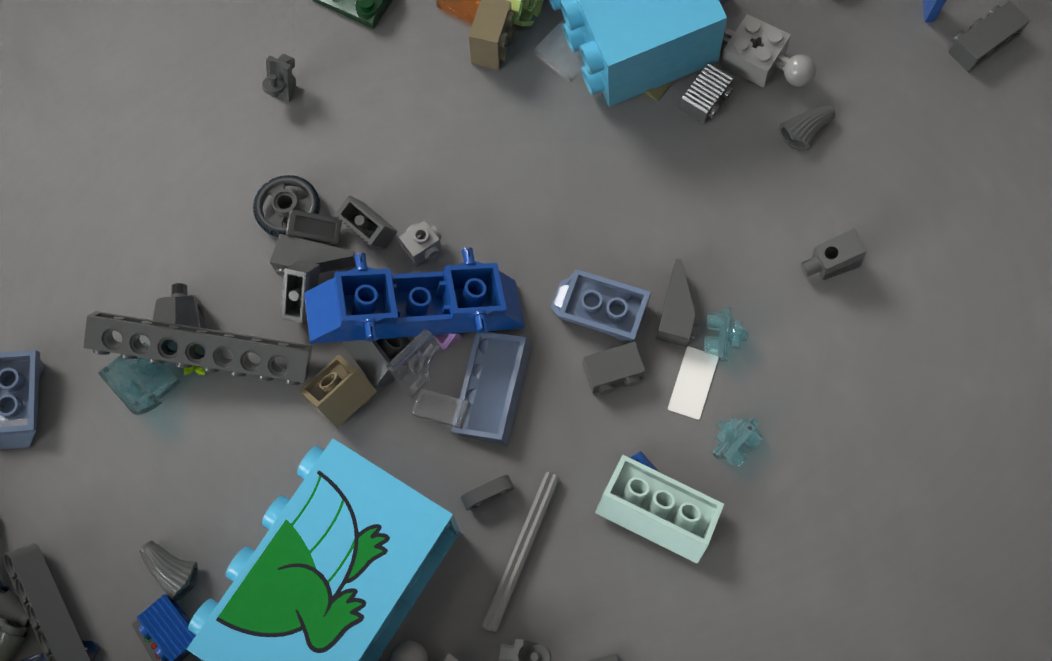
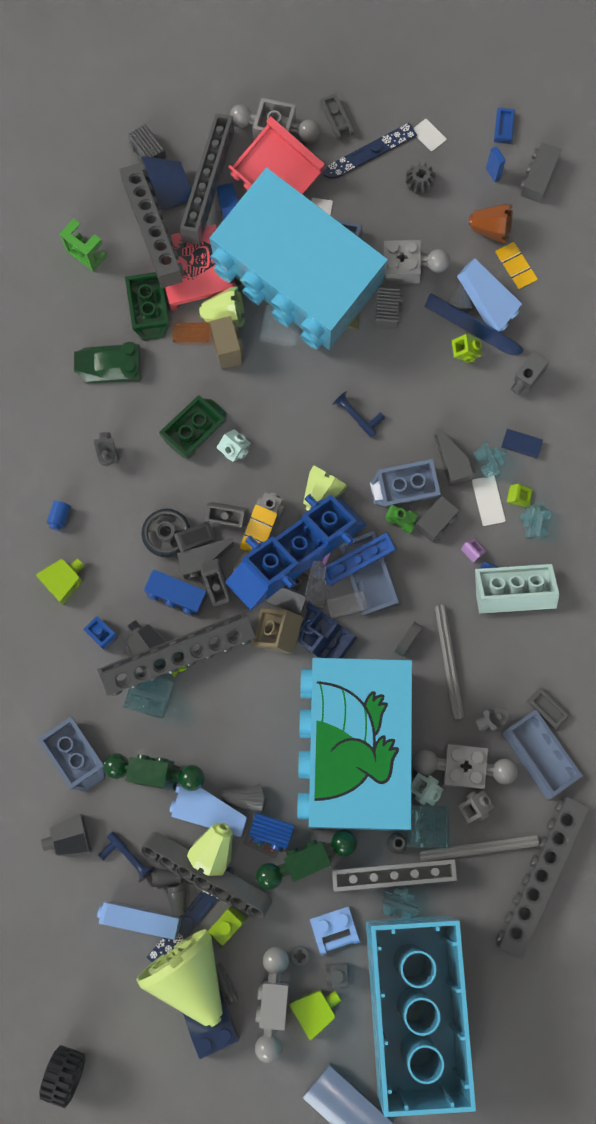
camera: 30 degrees left, 5 degrees up
(78, 610) = (212, 850): none -> yellowish green cone
(79, 472) = (153, 772): none -> dark green brick
(113, 555) = (205, 810): none -> light blue slope
(136, 279) = (100, 633): none -> blue slope
(137, 193) = (62, 579): none -> lime torso
(183, 121) = (58, 515): none -> blue brick
(250, 279) = (175, 593): none -> blue brick
(389, 430) = (324, 635): none -> dark blue slope
(396, 104) = (193, 426): none -> dark green slope
(396, 253) = (258, 526): none -> yellow sticker
(426, 150) = (234, 445): none -> light aqua brick
(488, 361) = (359, 559): none -> blue piece
(501, 248) = (322, 485): none -> yellowish green cone
(575, 347) = (401, 517): none -> bright green plate
(598, 217) = (367, 427): none -> dark blue piece
(637, 430) = (473, 550): none -> lavender slope
(736, 398) = (519, 495): none -> lime slope
(774, 186) = (467, 348): none -> lime brick
(776, 337) = (522, 443): none -> dark blue tile
(799, 167) = (473, 325): none -> dark blue piece
(837, 141) = (489, 296): none -> light blue slope
(895, 61) = (493, 222): none -> dark orange cone
(895, 127) = (516, 265): none -> yellow sticker

